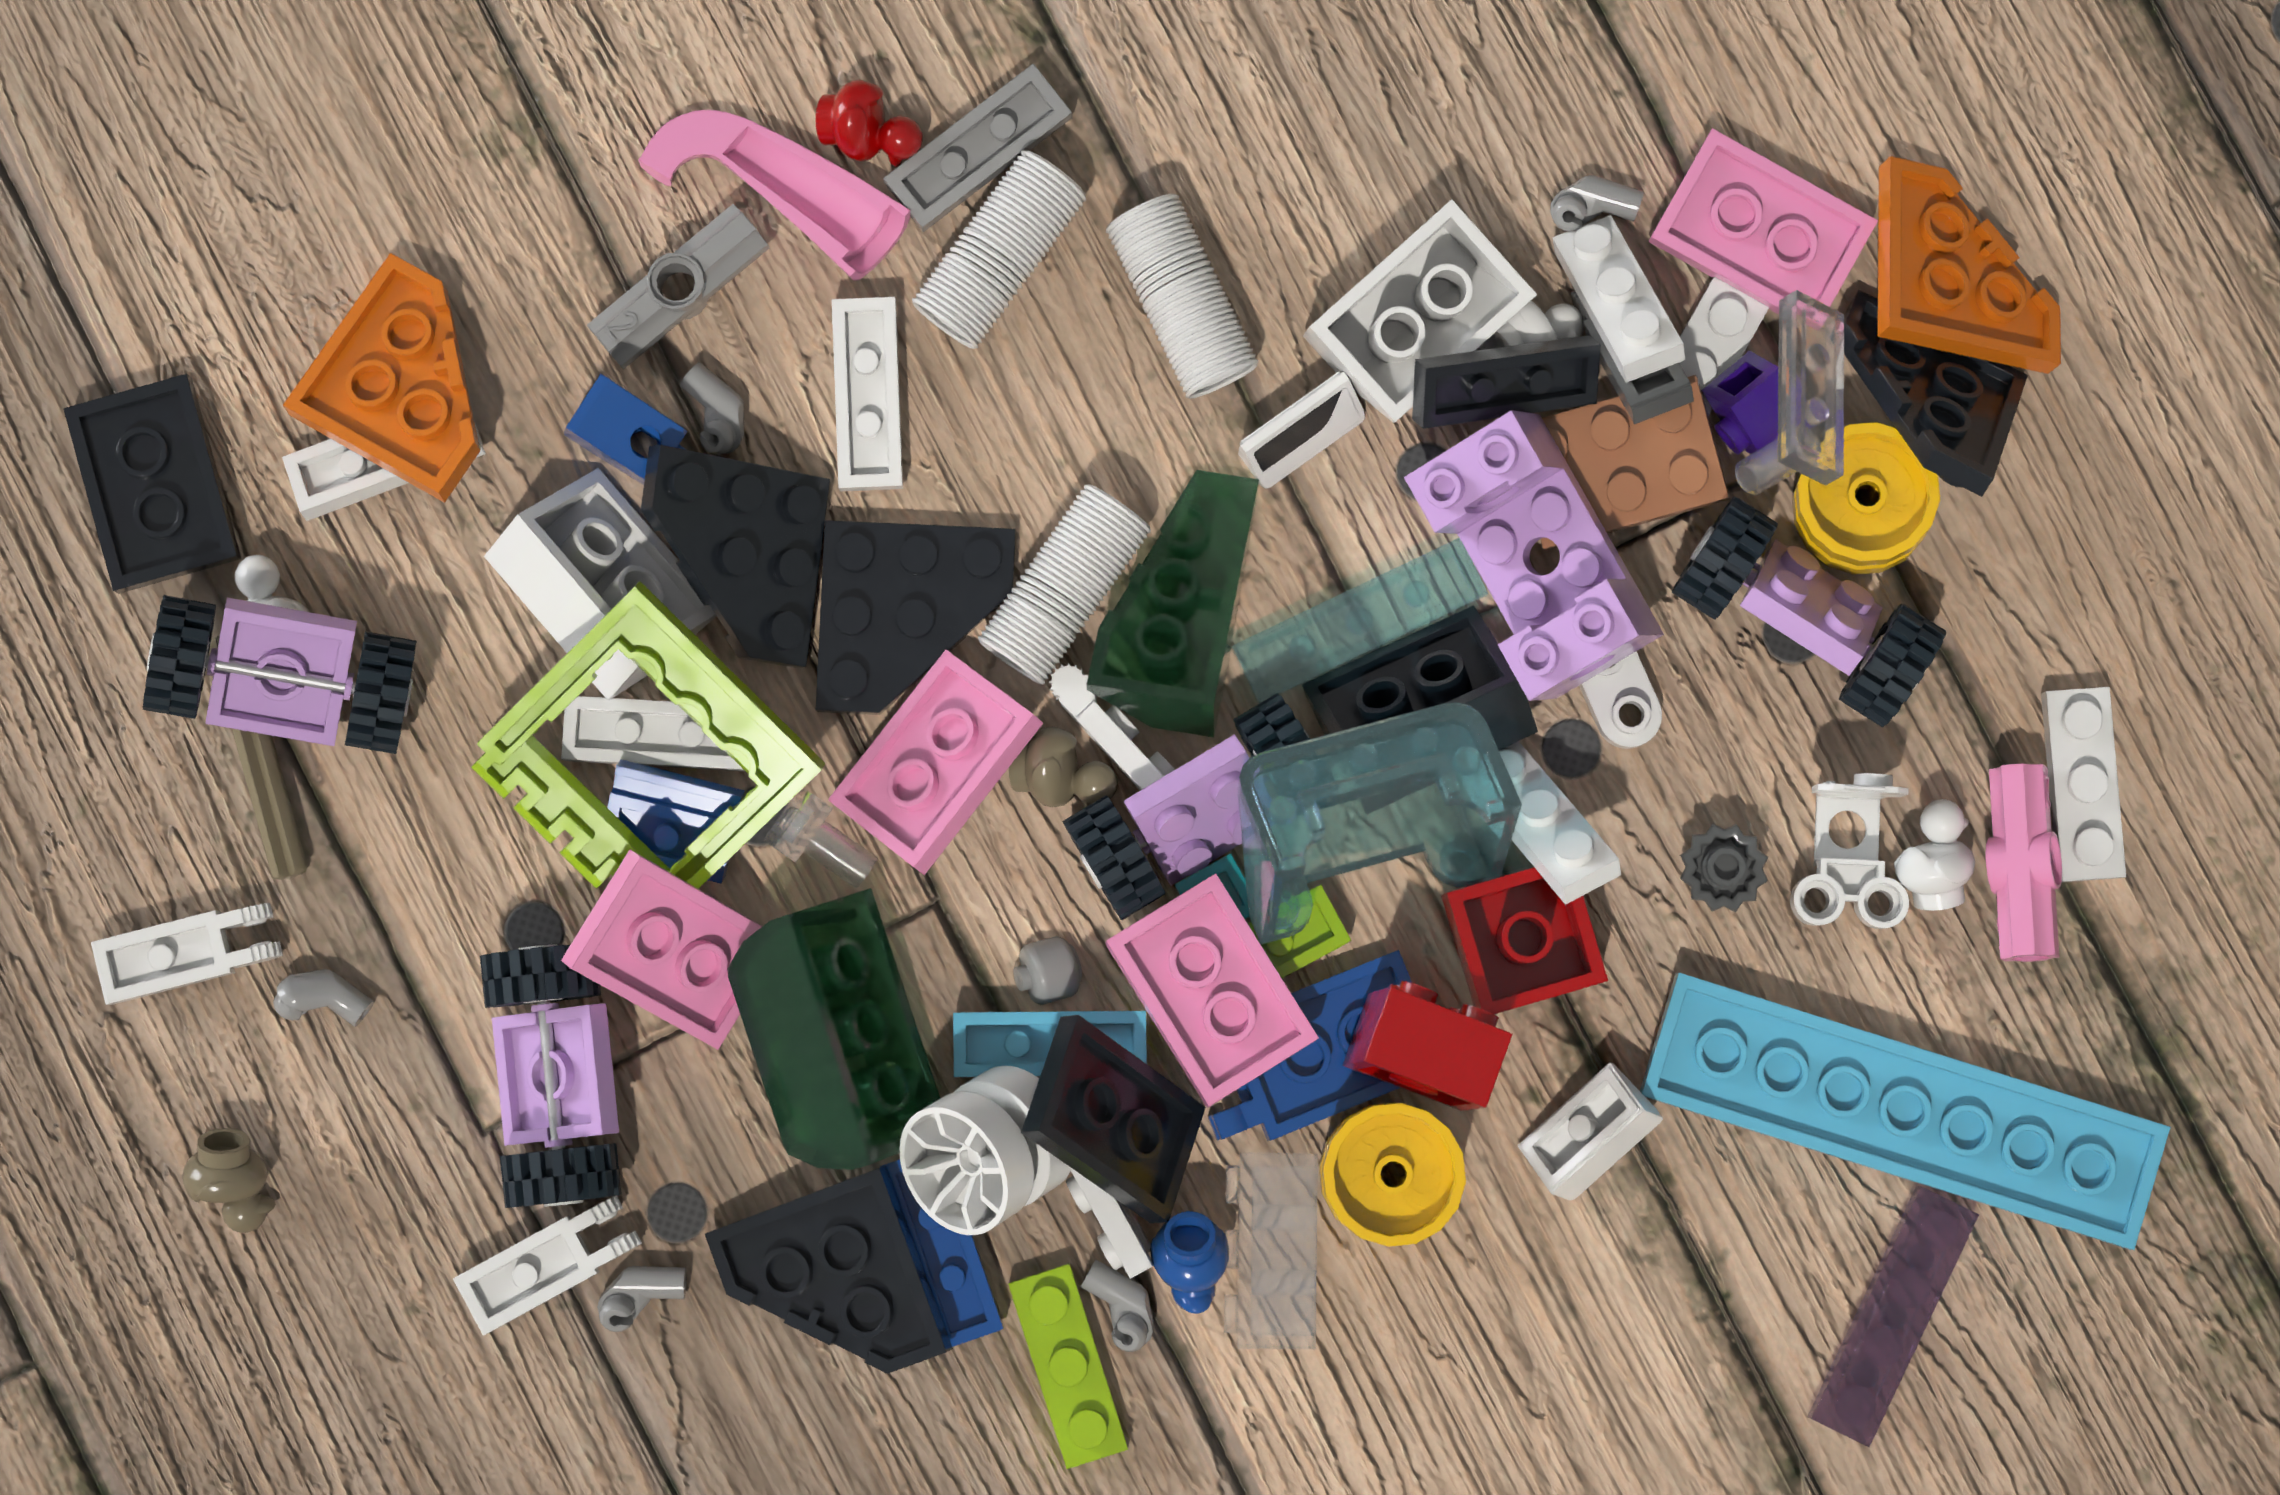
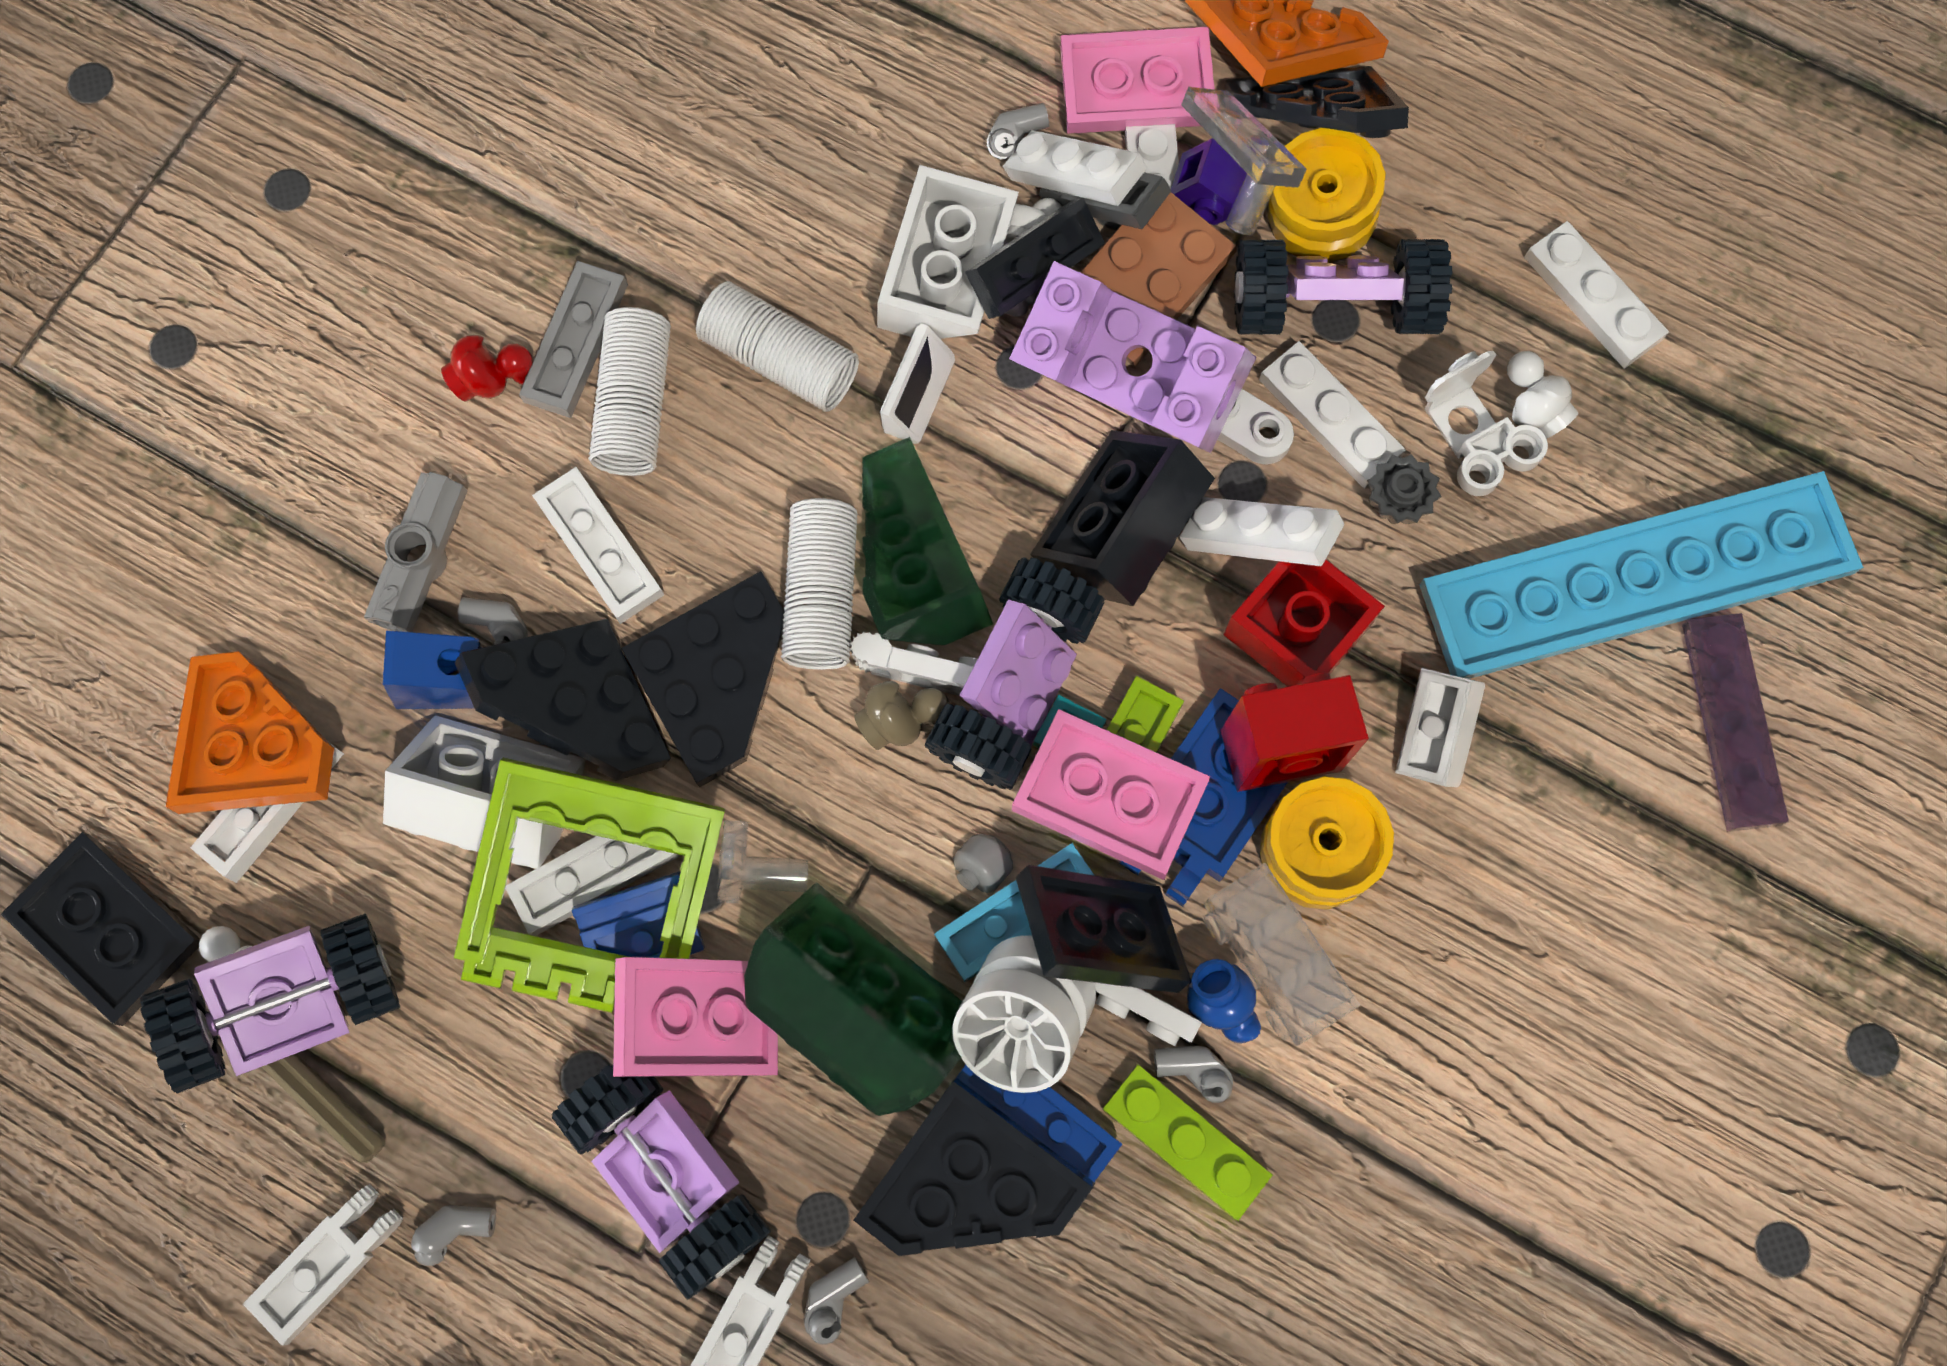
camera: 25 degrees left, 10 degrees down
(827, 203) = (495, 436): bright pink animal -> none
(935, 761) = (806, 762): bright pink plate -> none
(1359, 620) = (1041, 486): clear light blue tile -> none
(1371, 798) = (1135, 582): clear light blue windscreen -> none
(1712, 734) = (1330, 413): none -> white plate
(2024, 862) = (1599, 362): bright pink piece -> none

